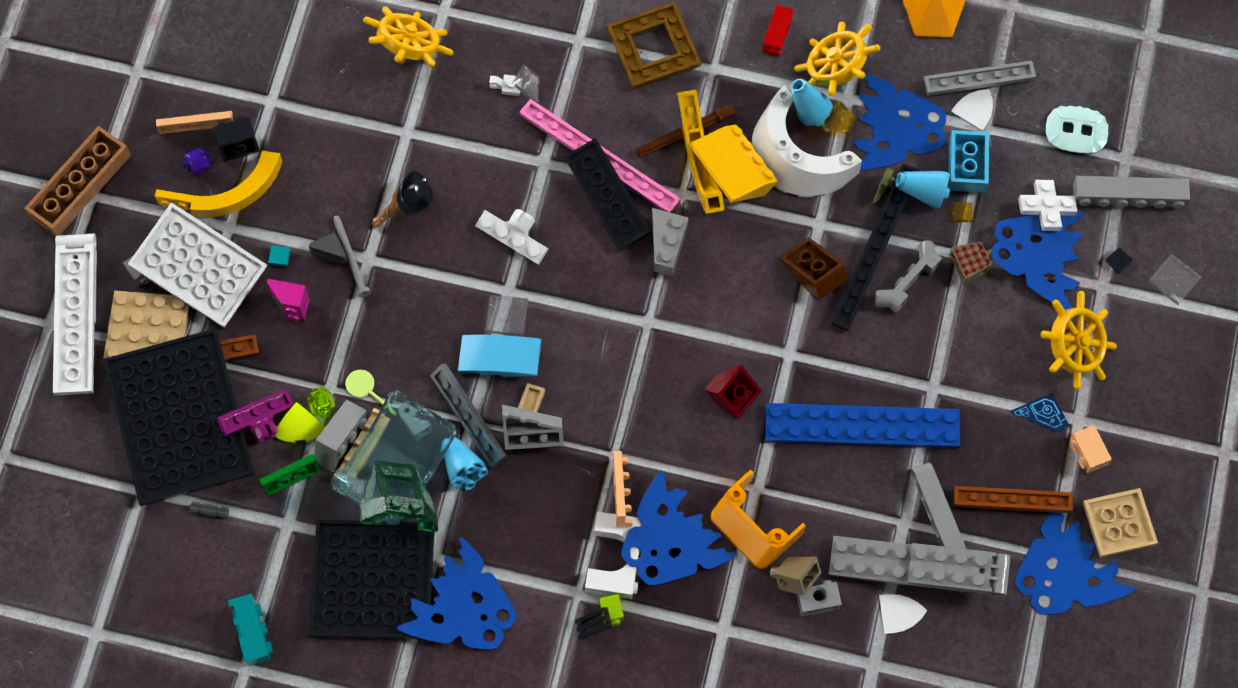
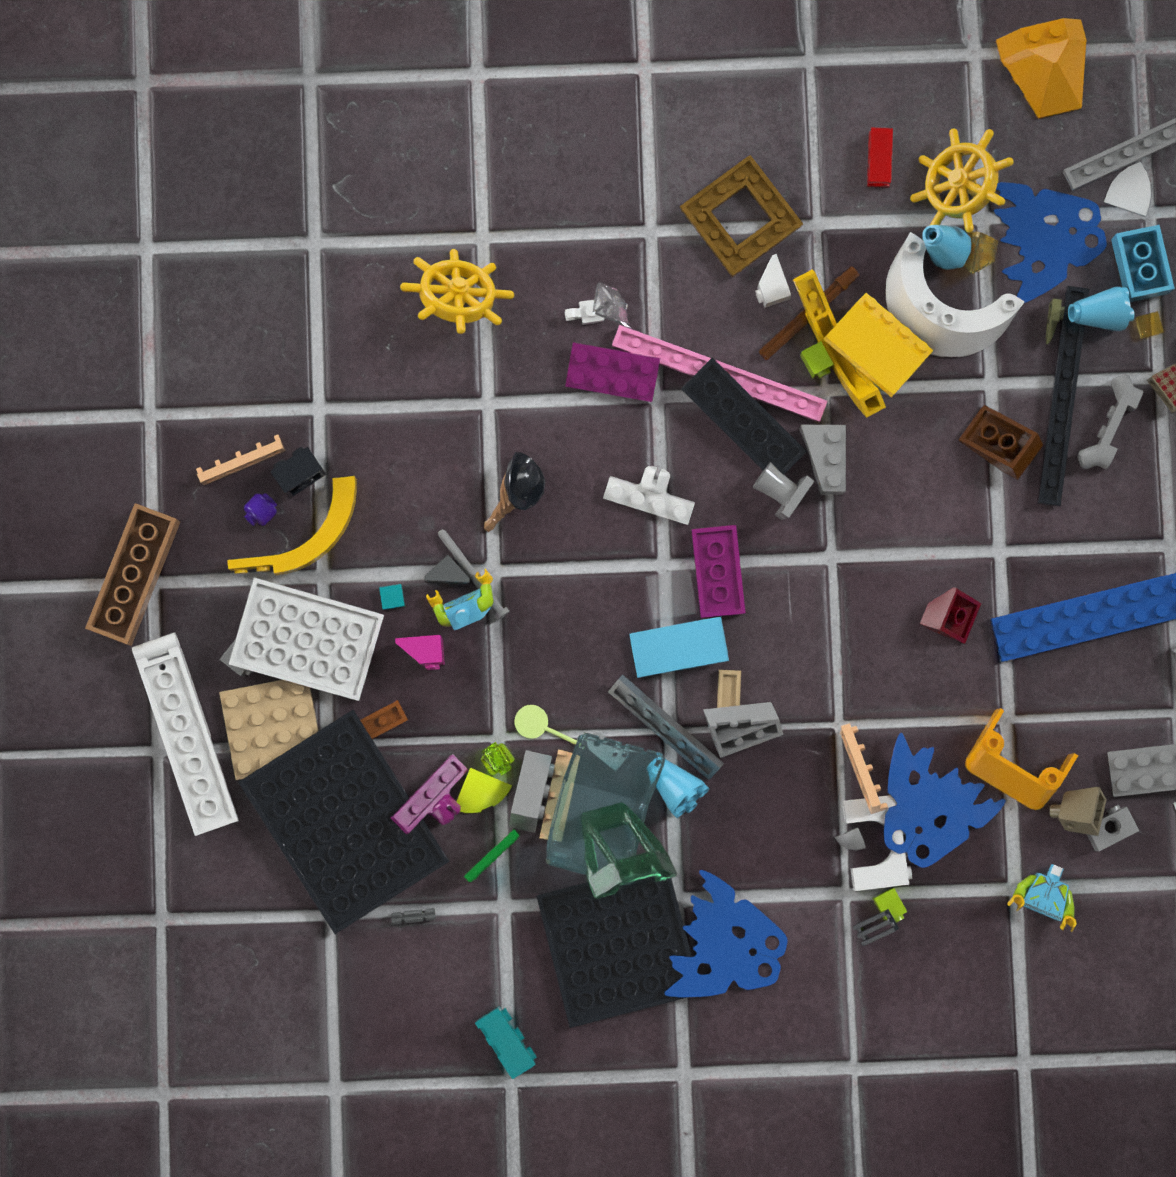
camera: 15 degrees left, 15 degrees up
(335, 276) = (466, 608): none -> torso
(513, 132) = (612, 372): none -> magenta plate
(551, 305) = (718, 571): none -> magenta plate
(594, 546) = (851, 840): none -> light grey brick
(622, 254) = (782, 489): none -> light grey plant
(663, 101) = (773, 285): none -> white slope
(681, 166) = (817, 360): none -> lime brick
(746, 638) = (1046, 896): none -> torso

